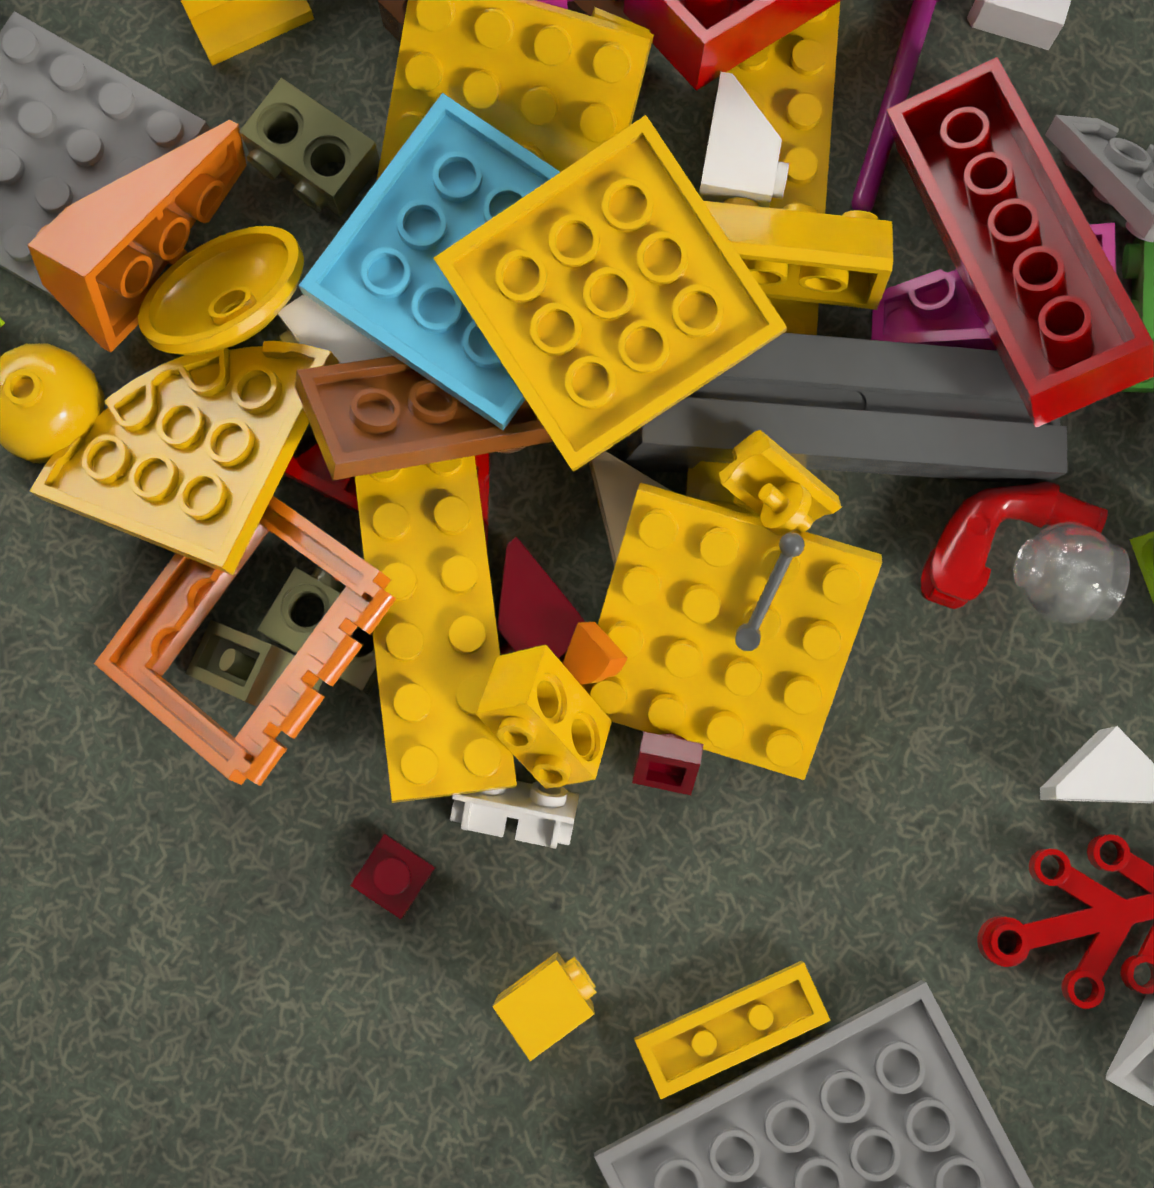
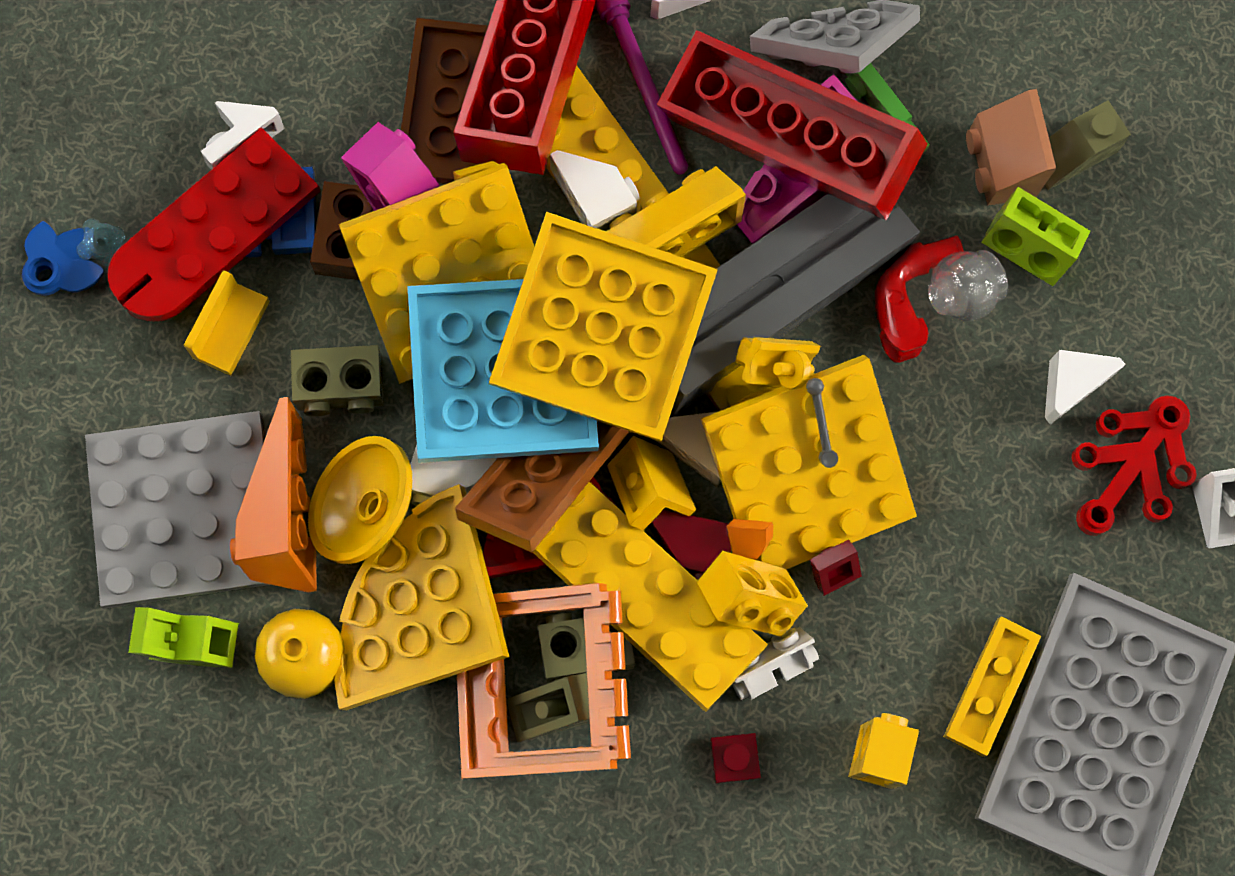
camera: 45 degrees left, 5 degrees down
(542, 511) = (648, 482): none -> yellow panel

